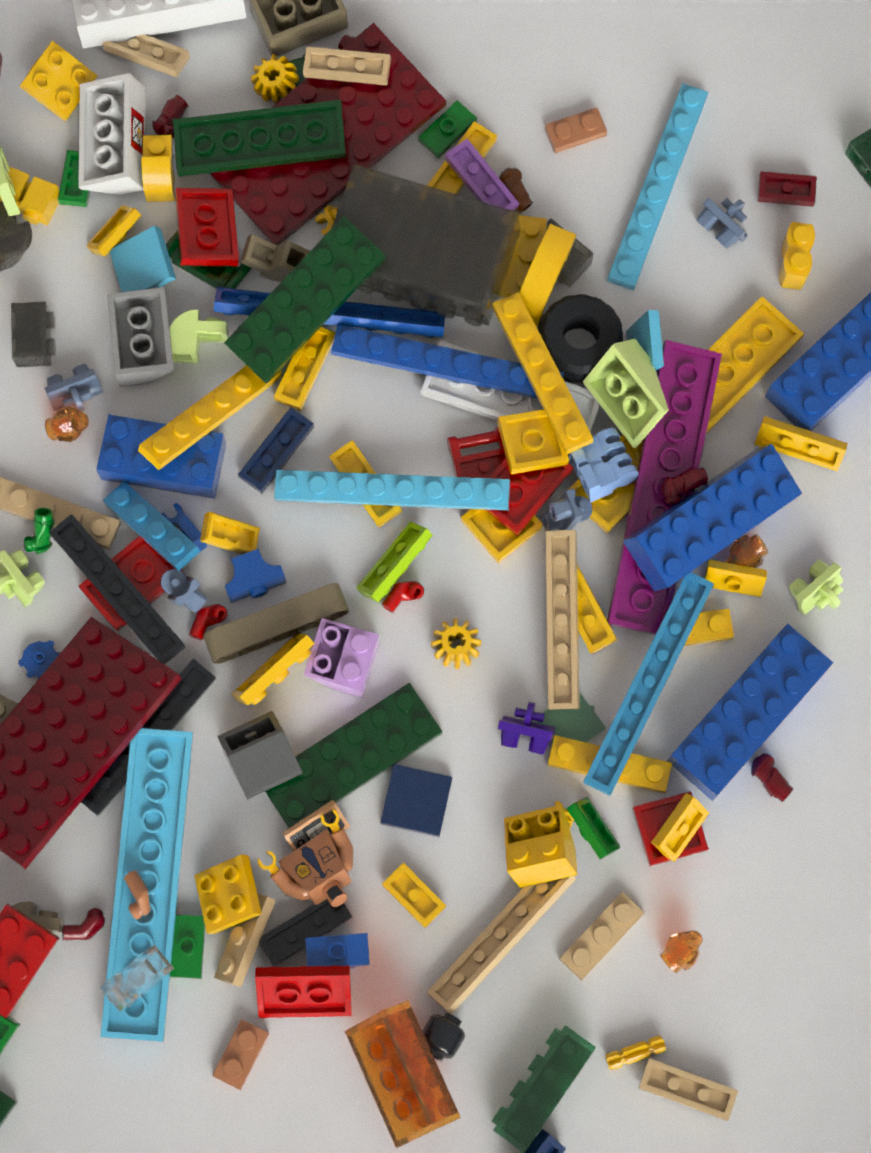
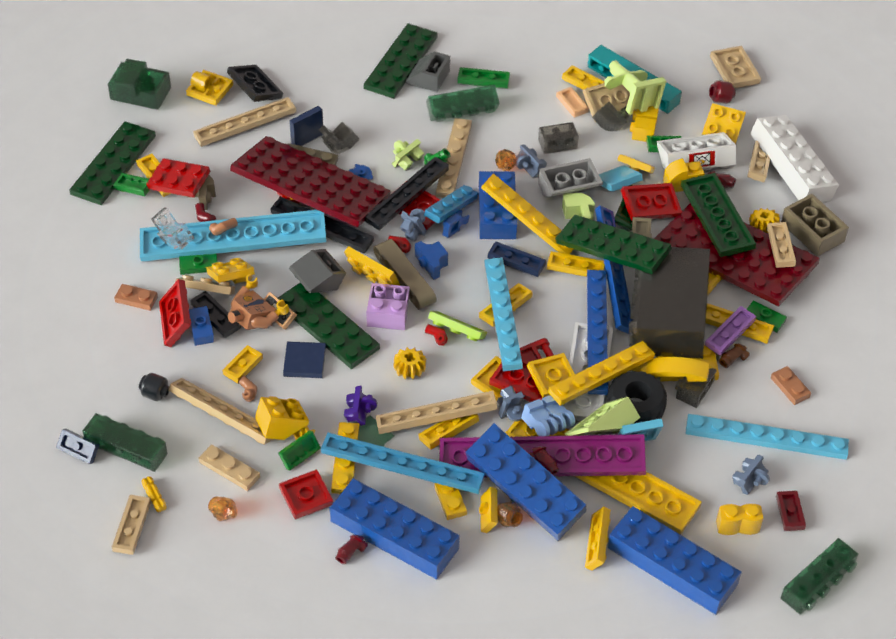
camera: 80 degrees right, 25 degrees down
(229, 533) = (455, 241): yellow plate -> none
(402, 1074) = (127, 364): clear orange brick -> none
(462, 889) = (250, 389): none -> nougat arm
(680, 827) = (304, 490): yellow plate -> none
(821, 591) = (492, 561): yellowish green hips -> none

